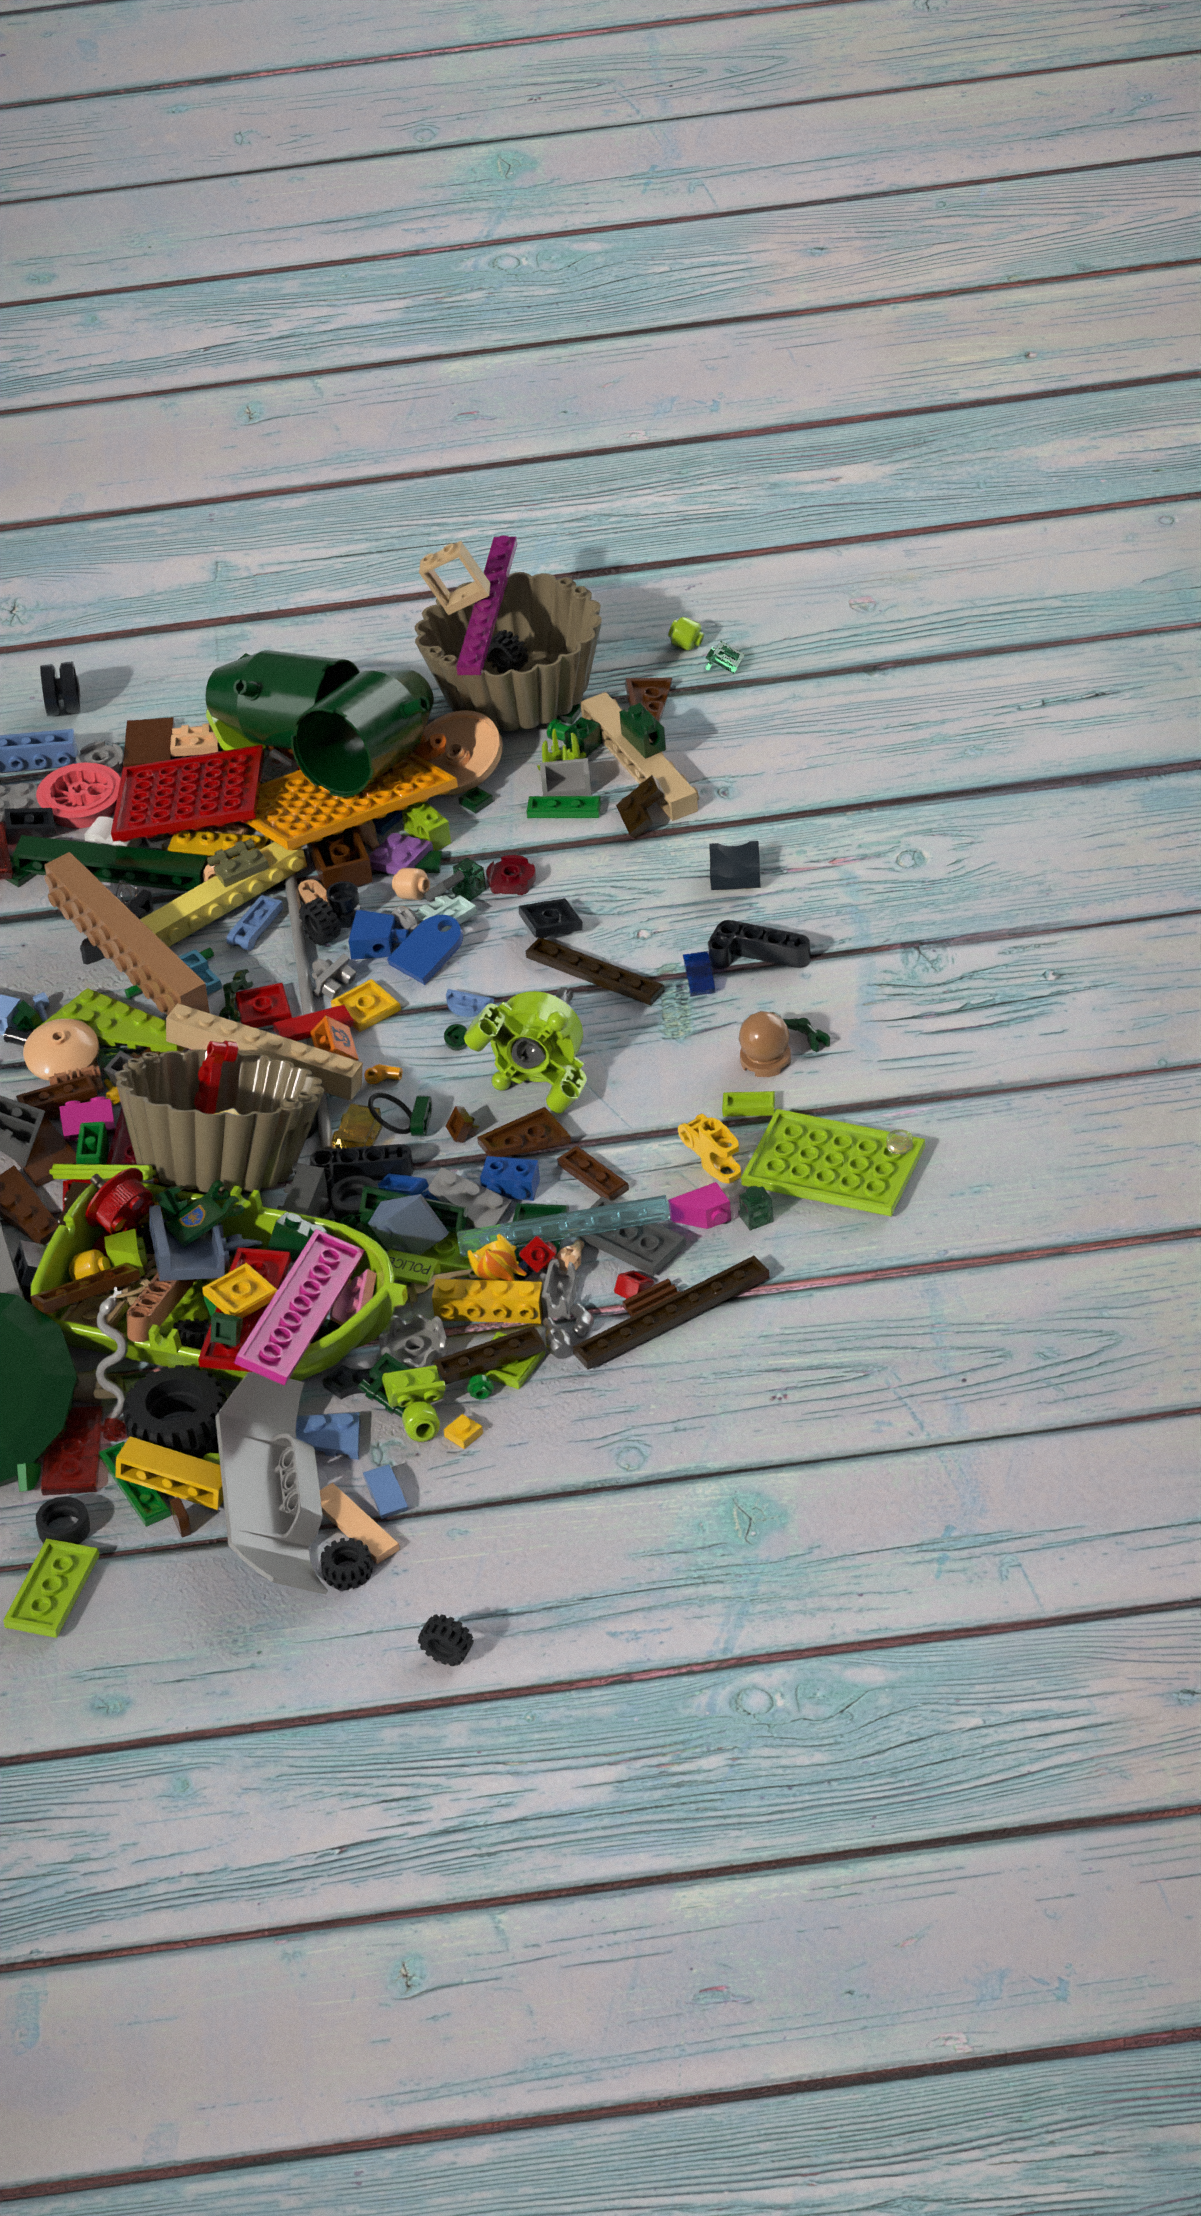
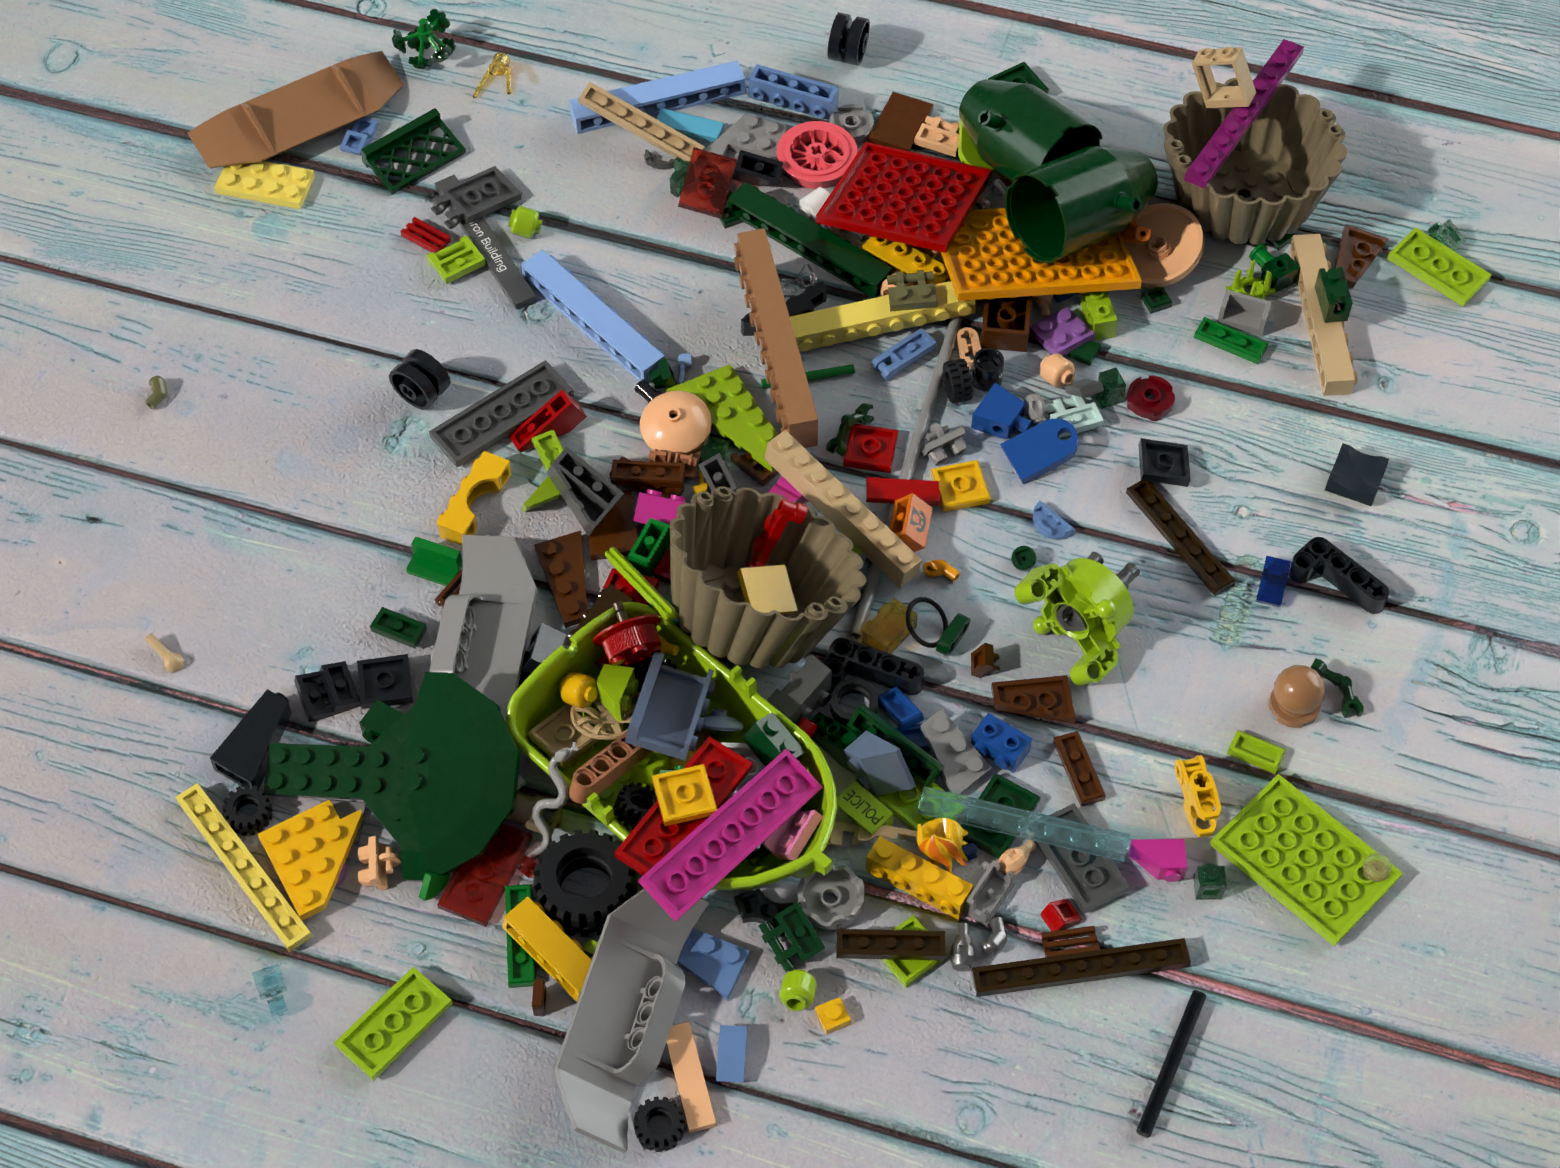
camera: 20 degrees right, 15 degrees up
(58, 1508) = (432, 934): black tyre -> none
(92, 1285) = (558, 718): reddish brown plate -> none
(171, 1202) = (677, 652): dark green tile -> none
(199, 965) = (830, 388): medium azure slope -> none
(203, 1215) = (695, 683): dark green flag -> none
(226, 1328) = (651, 834): dark green tile -> none
(413, 1386) = (807, 949): lime bracket -> none
(480, 1387) = (869, 973): green plate -> none
(507, 652) = (1248, 159): black tyre -> none
(538, 1253) = (985, 851): red bracket -> none
(634, 806) = (1294, 368): dark brown plate -> none
(686, 633) = (1421, 195): lime head -> none
(730, 683) = (1439, 267): none -> lime plate
(789, 1349) = (1171, 1064): none -> black axle

